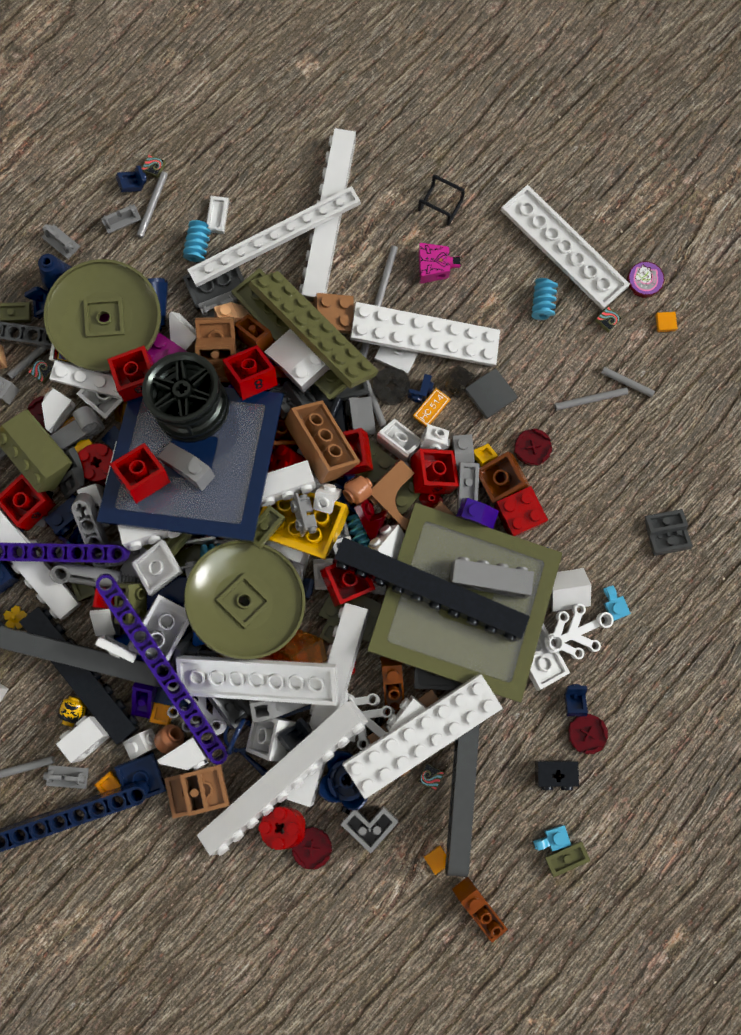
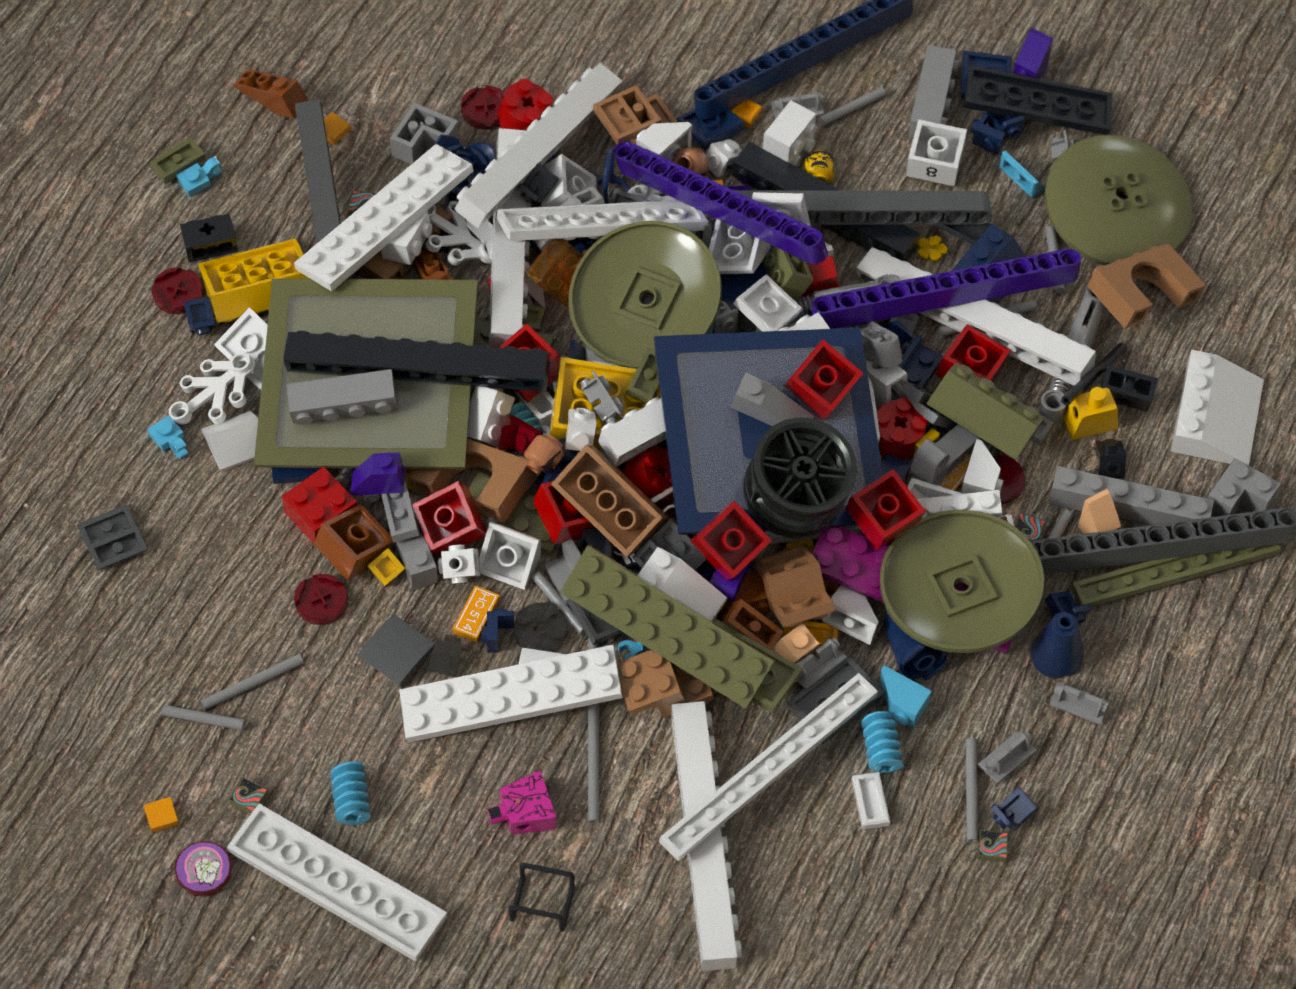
camera: 165 degrees right, 20 degrees down
(171, 269) = (903, 697): none -> medium azure slope
(531, 727) = (247, 277): none -> yellow slope

